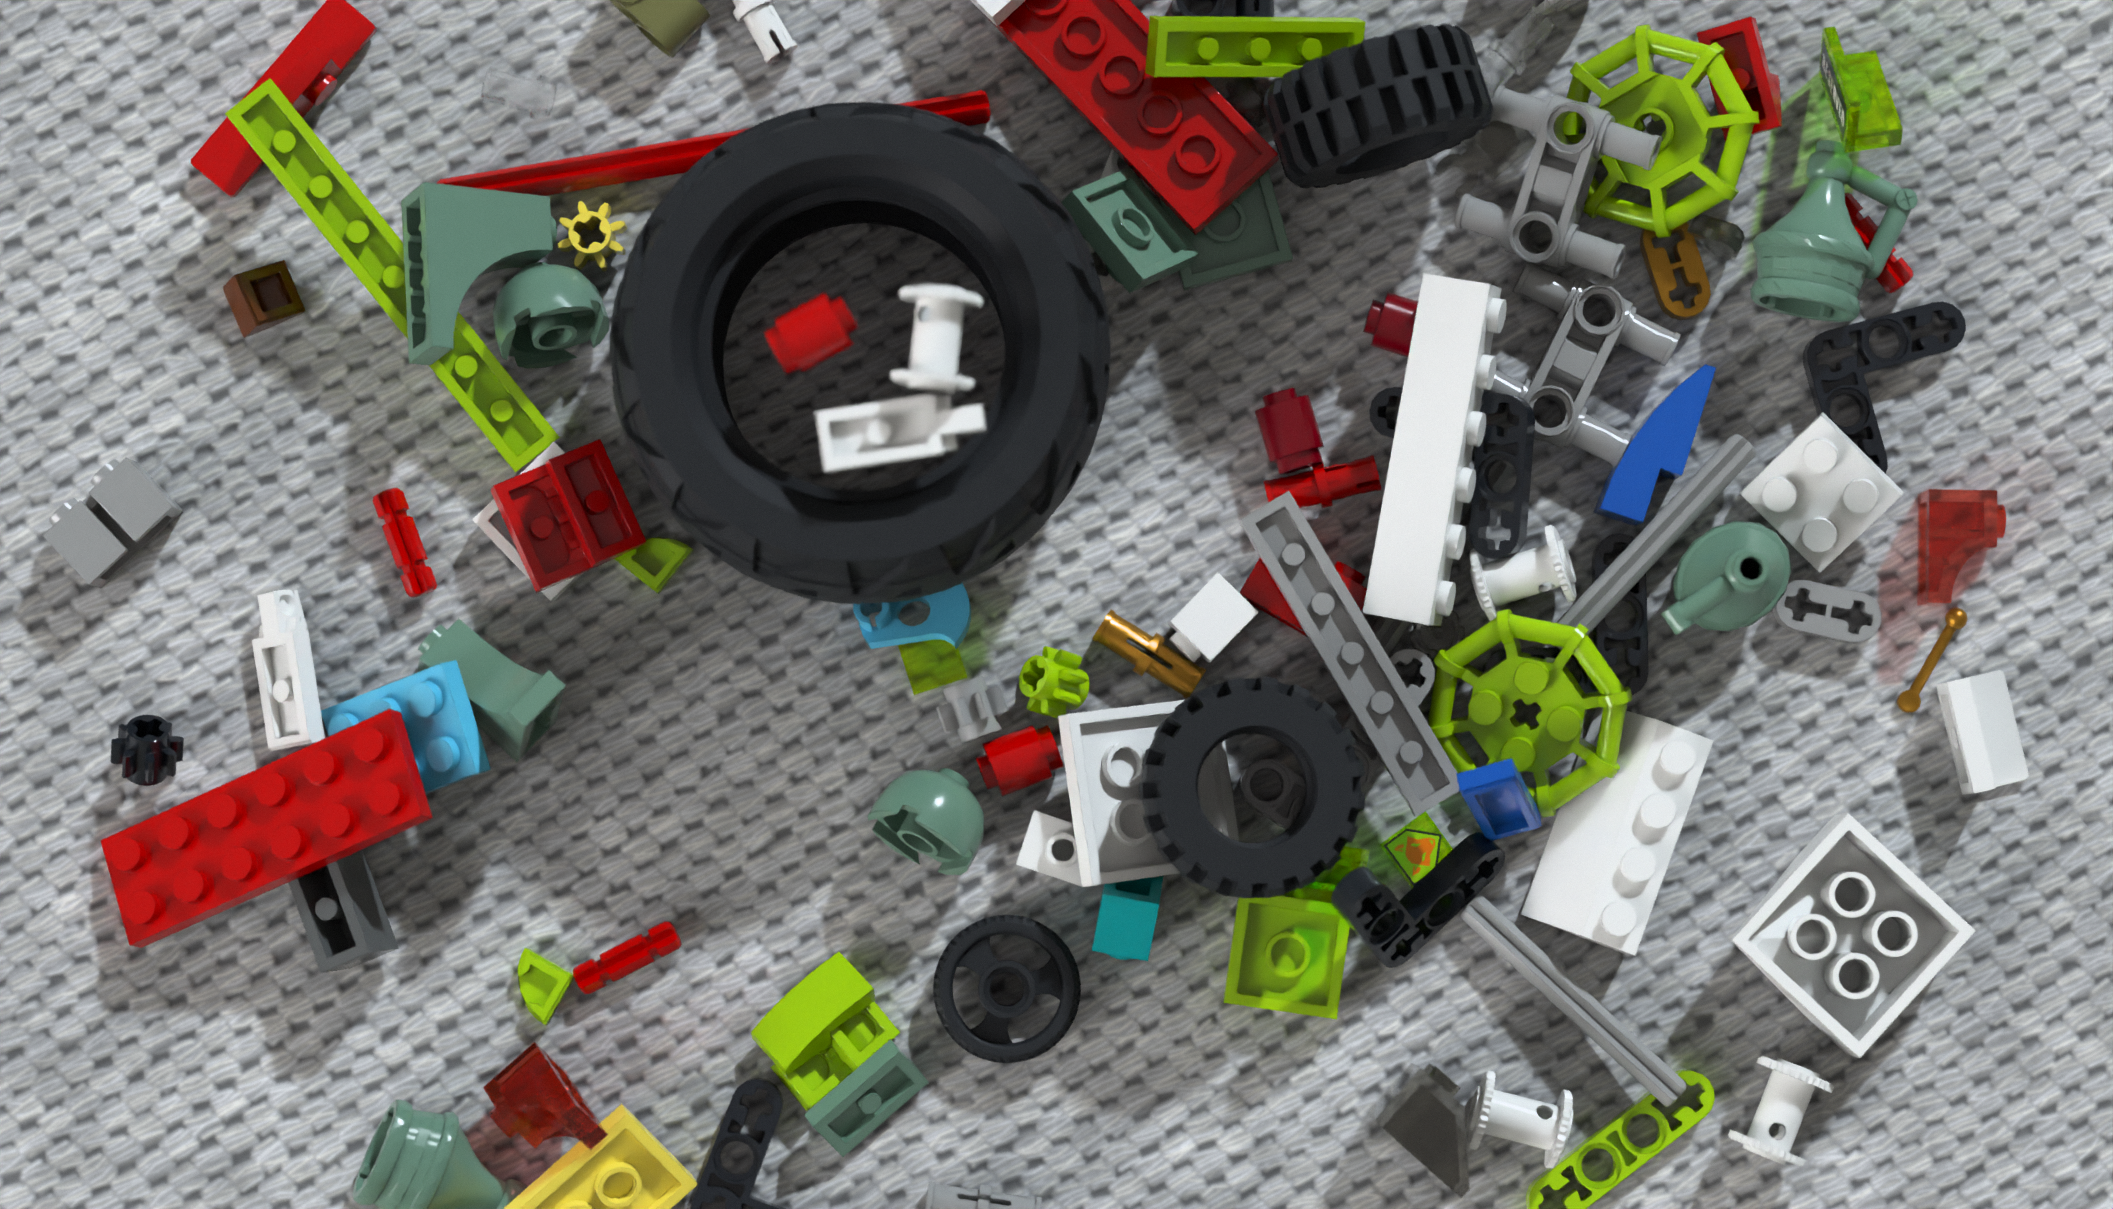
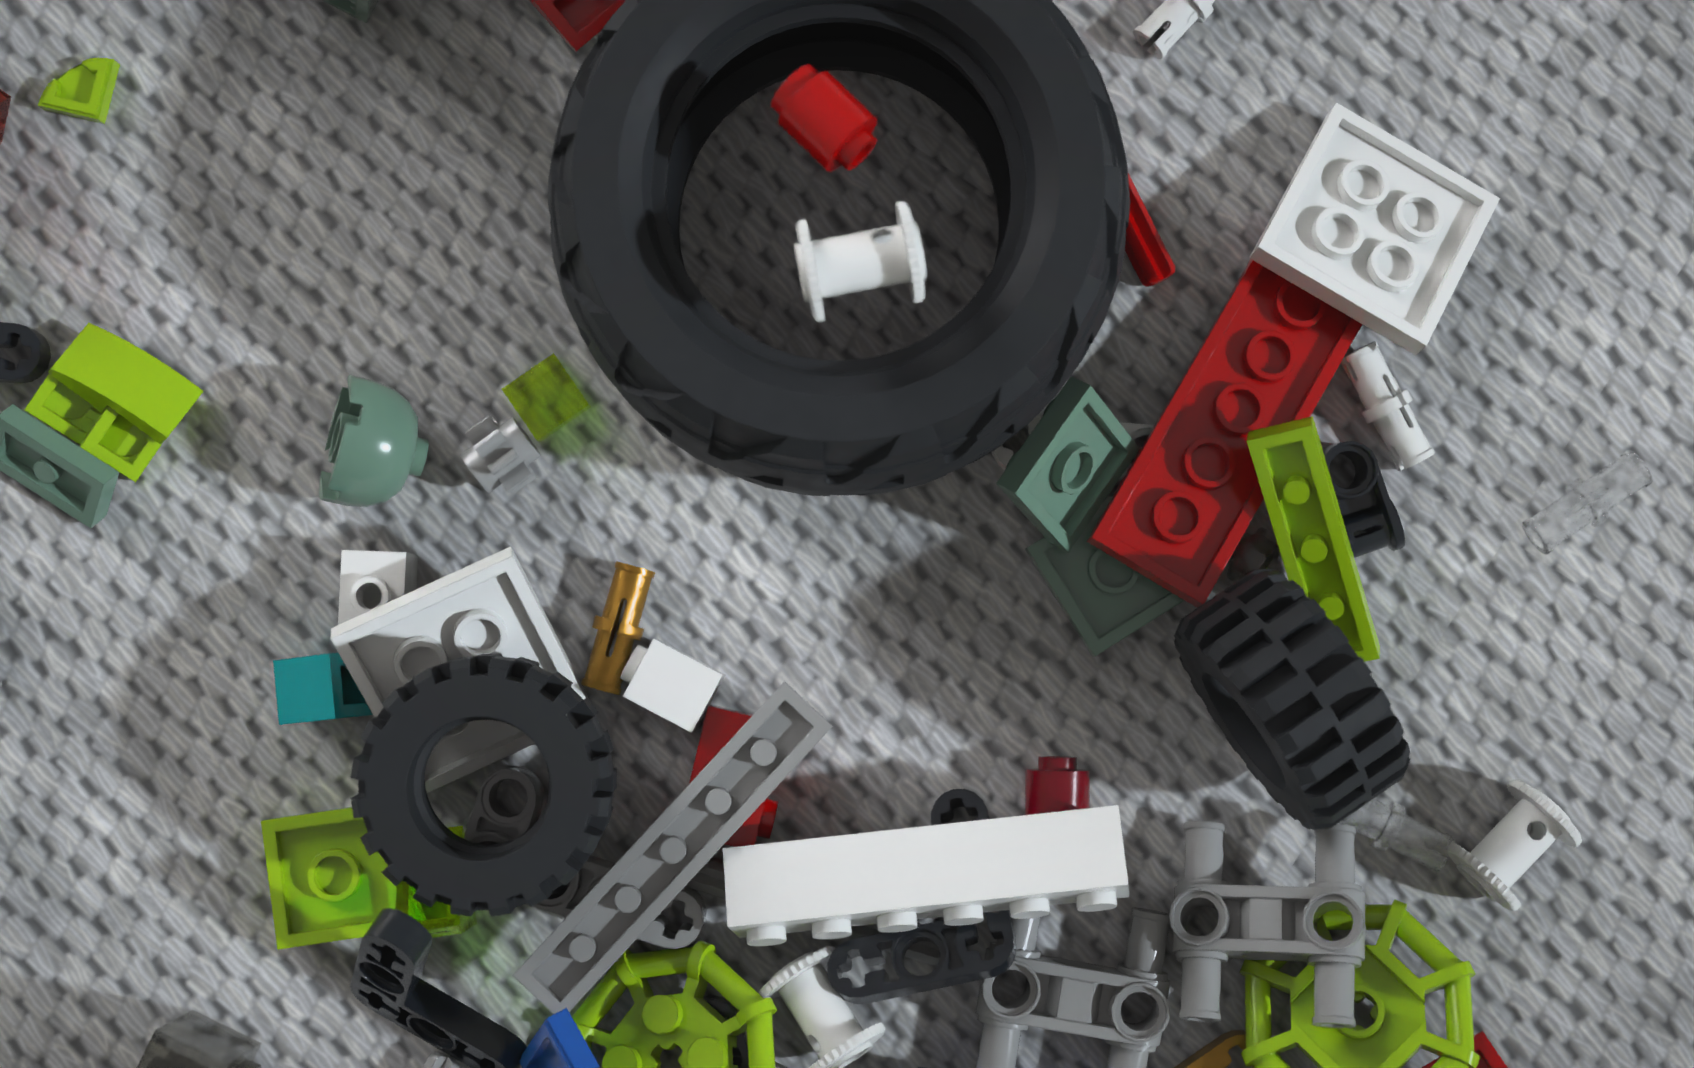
camera: 75 degrees right, 0 degrees up
(627, 957) = (134, 170): red axle -> none
(656, 561) = (557, 68): lime tile -> none
(893, 431) = (740, 246): white hinge -> none
(947, 620) = (589, 400): medium azure piece -> none
(991, 1037) = (237, 631): black wheel -> none
(1019, 759) = (462, 520): red brick -> none
(1054, 682) = (555, 534): lime gear -> none
(1290, 431) = (905, 709): dark red brick -> none
(1327, 483) = (859, 764): red pin -> none
(1416, 848) = (488, 982): tile -> none
(1423, 641) = (733, 953): clear smoke plate -> none
(1490, 150) = (1279, 837): clear smoke plate -> none

